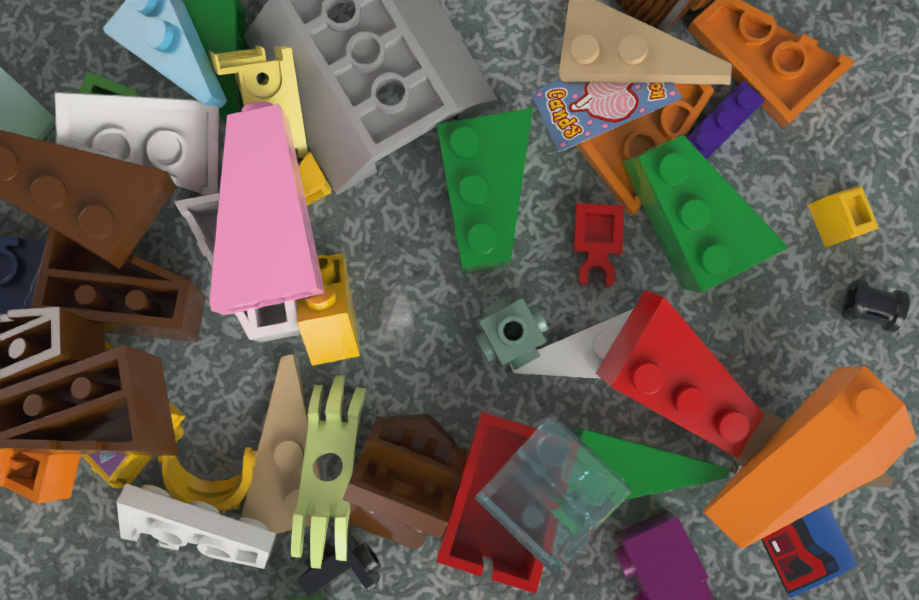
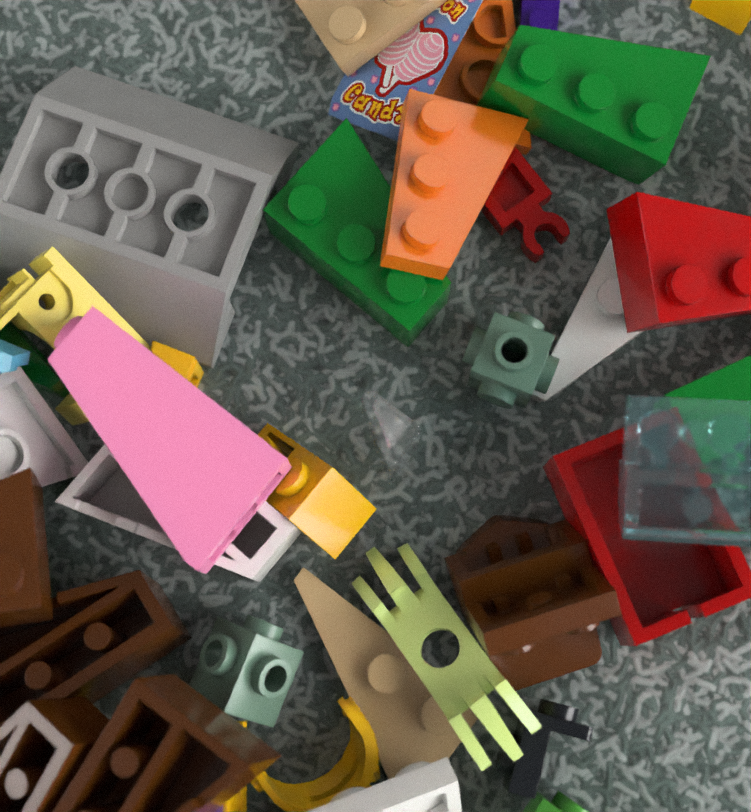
camera: 35 degrees left, 5 degrees down
(209, 386) = (246, 669): none -> sand green brick
(559, 191) = (441, 179): none -> orange wing

